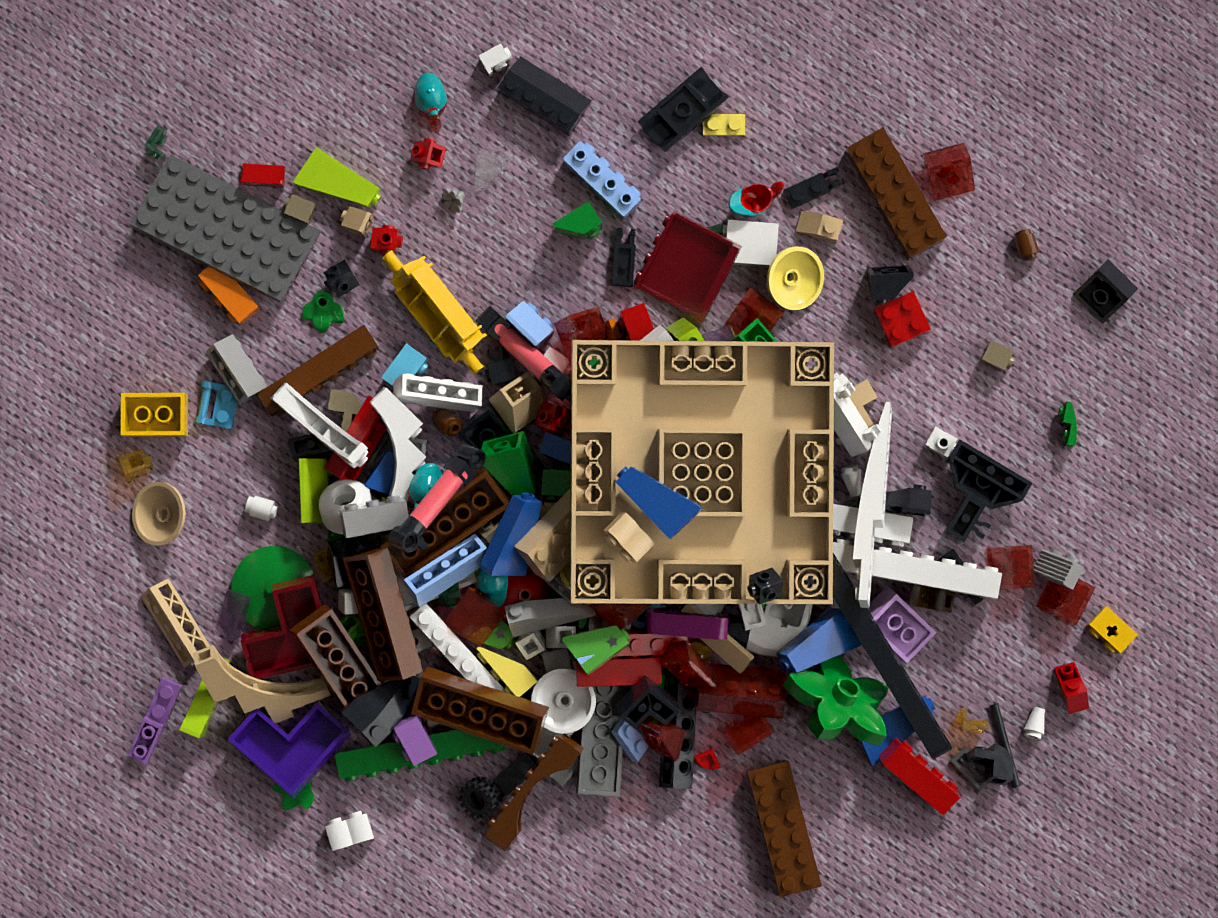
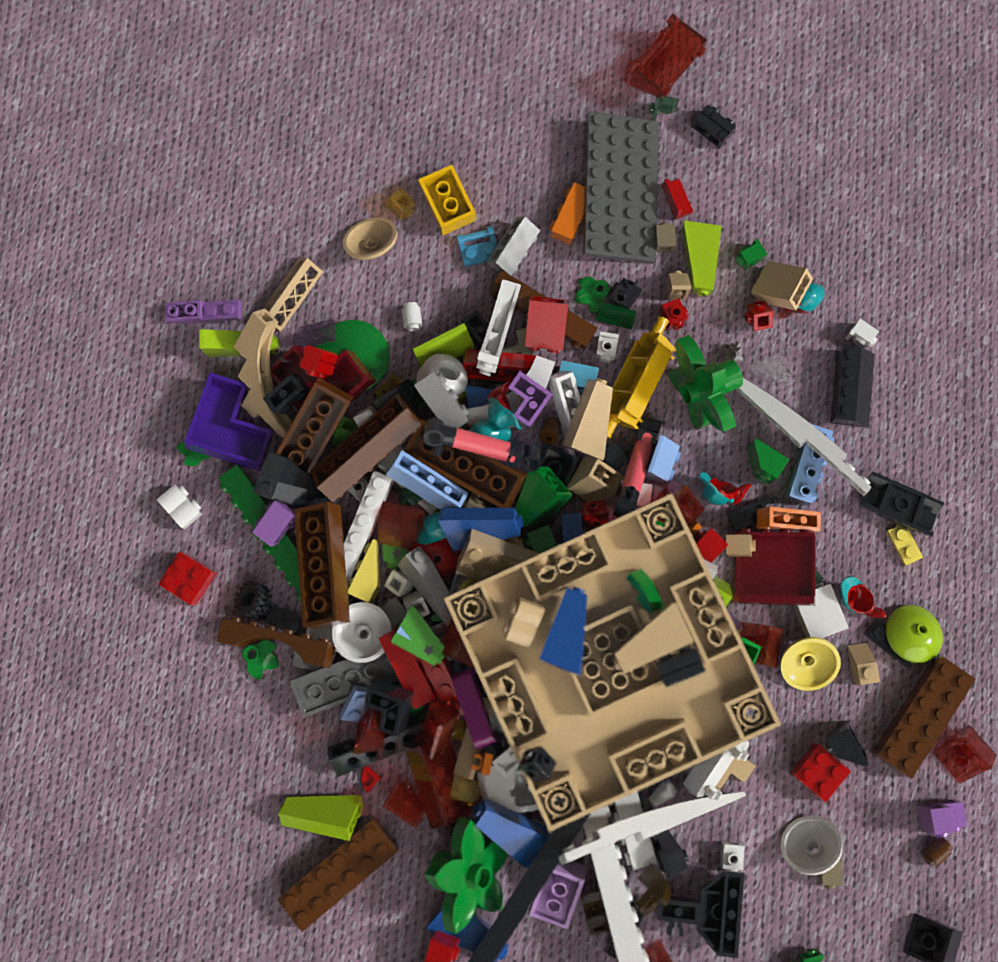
camera: 65 degrees right, 5 degrees down
(110, 117) = (666, 59): none -> clear red windscreen
(203, 99) = (713, 126): none -> black brick
(274, 622) = (318, 361): none -> red brick
(289, 669) = (286, 394): none -> black brick
(336, 375) = (546, 324): none -> red slope
(358, 299) = (615, 315): none -> dark green tile
(359, 131) = (751, 255): none -> green brick
(378, 324) = (603, 354): none -> white brick
(407, 117) = (782, 285): none -> tan brick
(408, 464) = (500, 409): none -> teal hair
(413, 425) = (534, 396): none -> medium lavender brick
(427, 854) = (187, 578): none -> red brick
(458, 378) = (591, 420): none -> tan slope
(476, 250) = (704, 385): none -> green plant
(543, 814) = (262, 660): none -> green plate
(559, 178) = (802, 432): none -> white slope
(588, 281) = (721, 492): none -> hair
(647, 229) = (793, 519): none -> orange brick
(650, 289) = (740, 545): none -> tan brick
(657, 407) = (649, 595): none -> green slope
(702, 423) = (655, 639): none -> tan slope
(721, 819) = (323, 814): none -> lime slope
(737, 411) = (680, 666): none -> black brick
(743, 637) = (485, 763): none -> orange tile
(760, 669) = (464, 790): none -> clear yellow bracket
(815, 172) = (905, 635): none -> lime dish
(934, 529) = (657, 890): none -> dark brown brick
(955, 365) = (809, 834): none -> white dish
(996, 224) = (942, 817): none -> medium lavender brick

